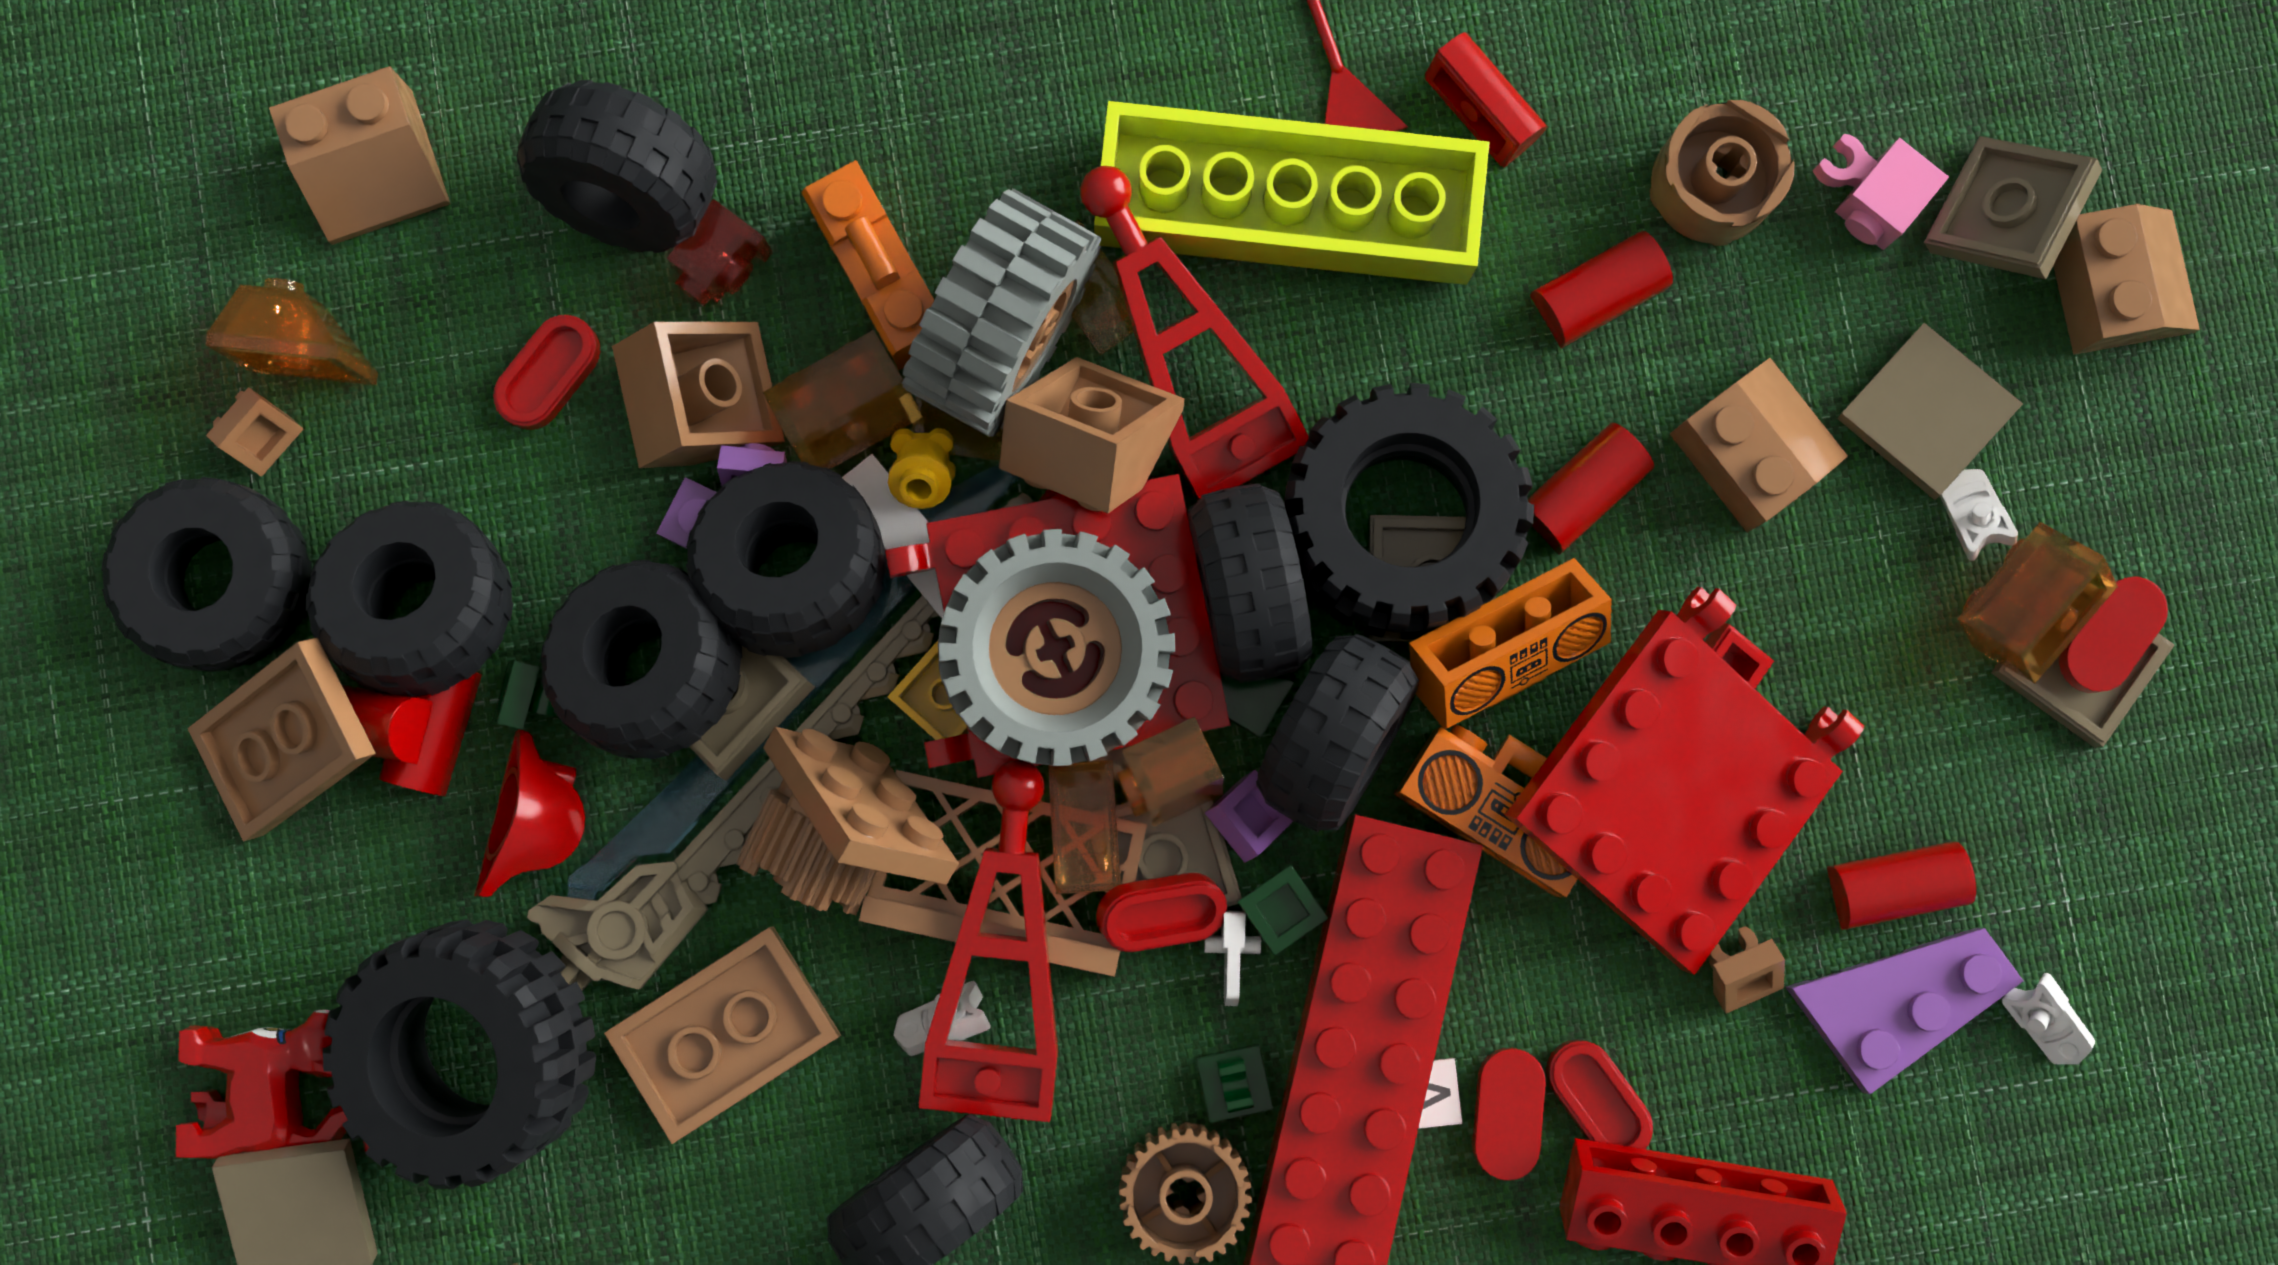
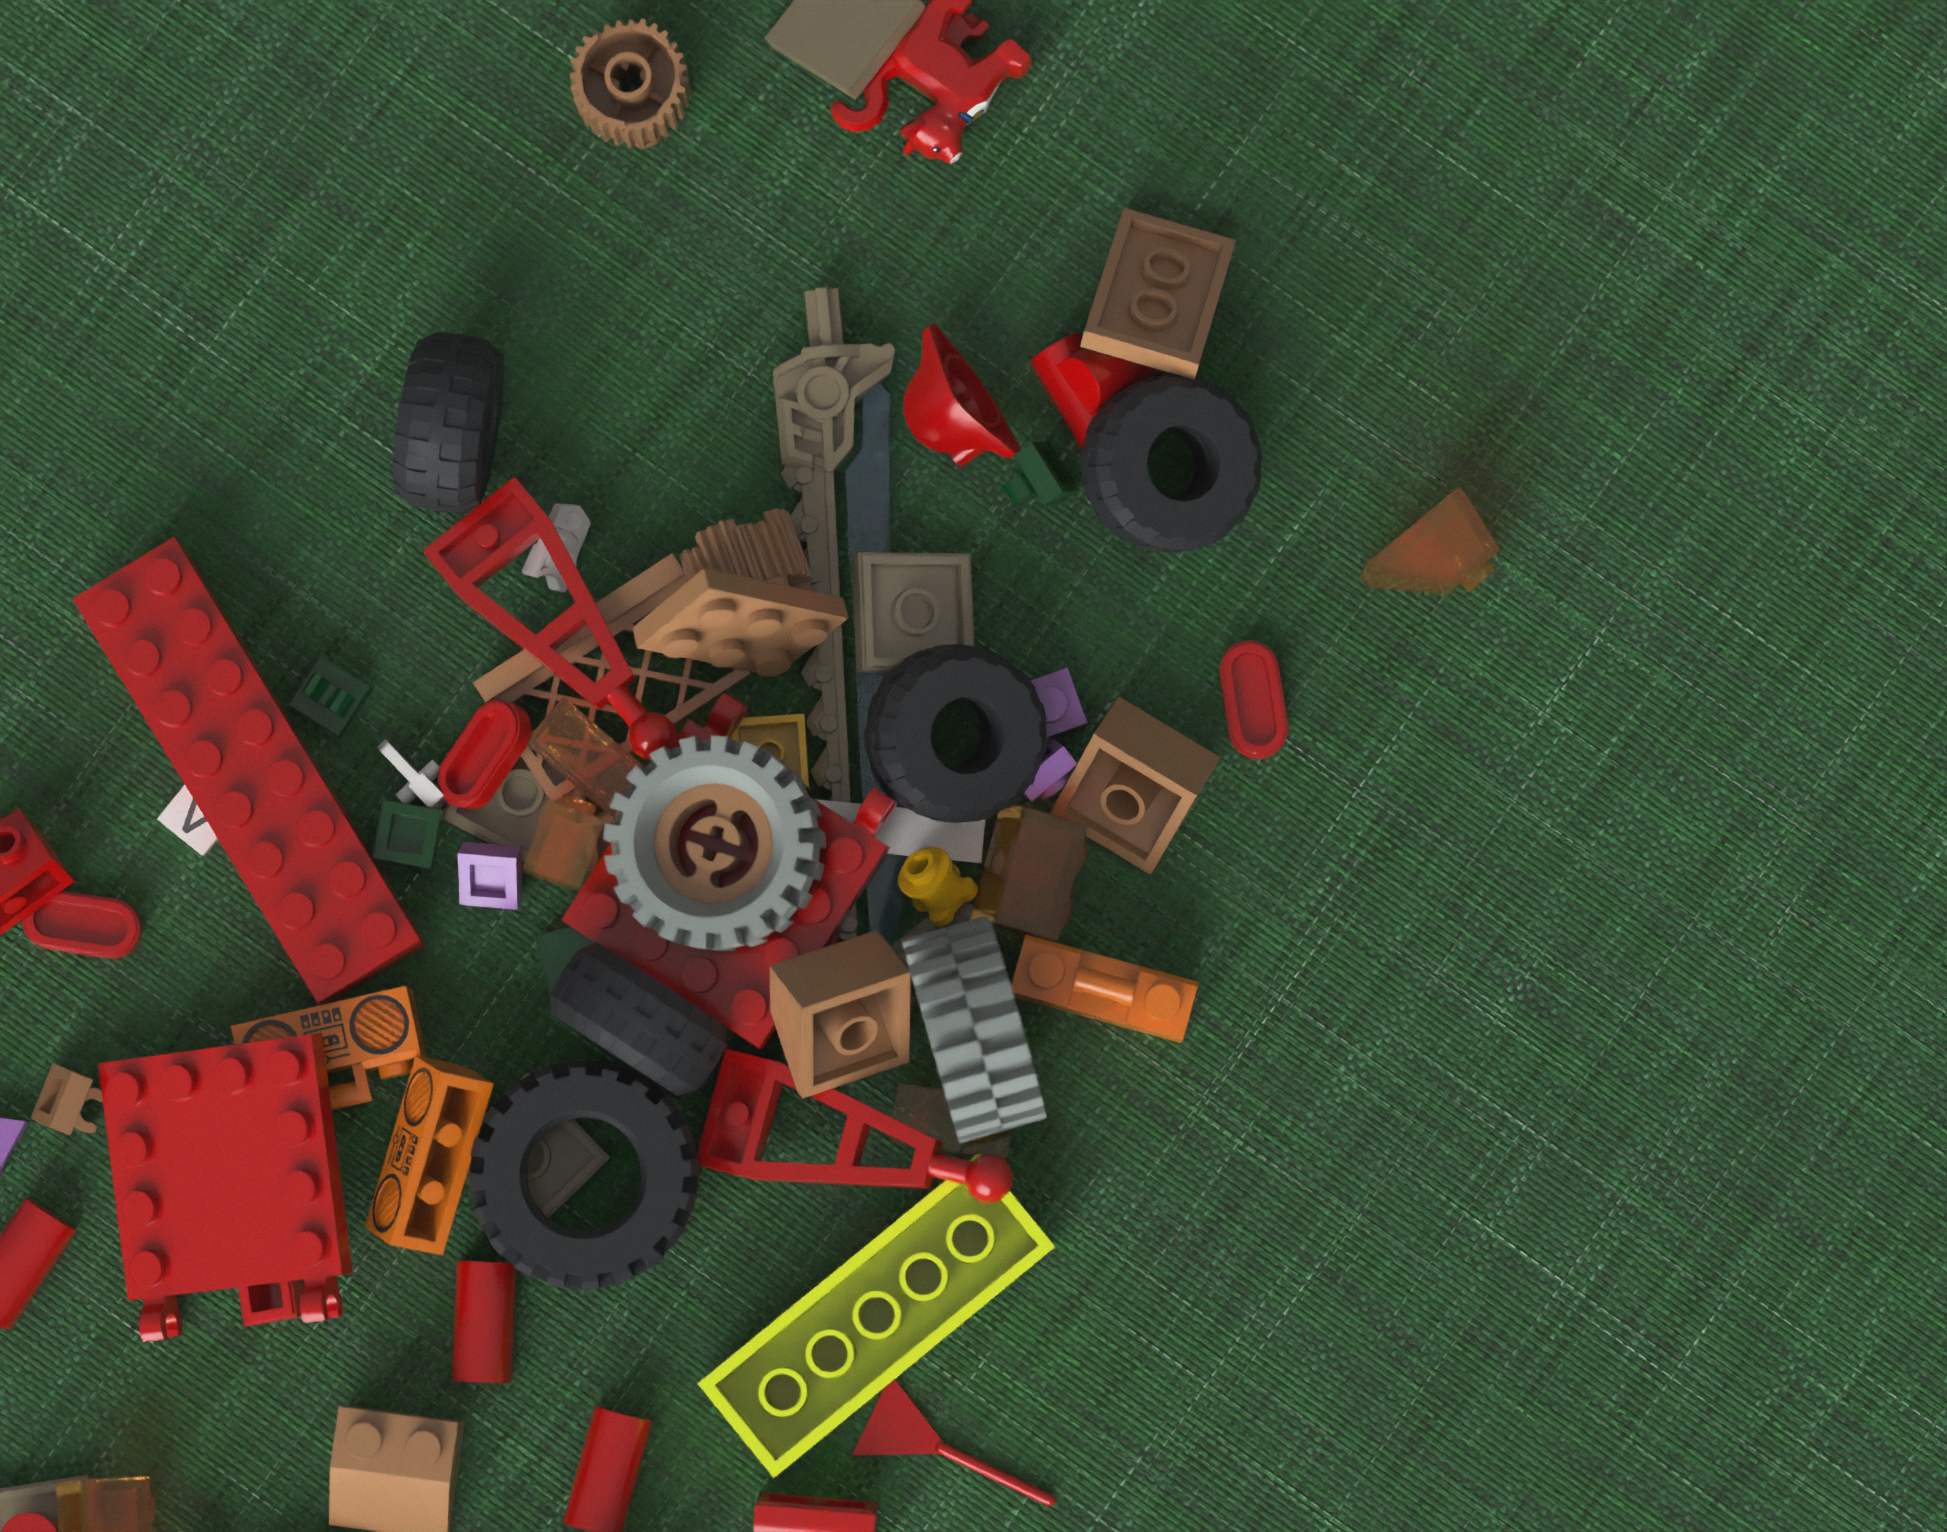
camera: 140 degrees right, 0 degrees up
(149, 563) = (1336, 292): black tyre -> none
(254, 431) = (1397, 467): medium nougat tile -> none
(360, 154) = (1522, 715): medium nougat slope -> none
(392, 1087) = (837, 154): black tyre -> none
(600, 630) = (1023, 541): black tyre -> none
(617, 166) = (1329, 872): black tyre -> none
(717, 255) = (1218, 887): clear red brick -> none
(722, 1034) = (690, 397): medium nougat plate -> none
(1175, 1227) = (274, 568): medium nougat brick -> none
(1336, 732) = (482, 979): black tyre -> none
(1509, 1113) = (132, 855): red tile -> none

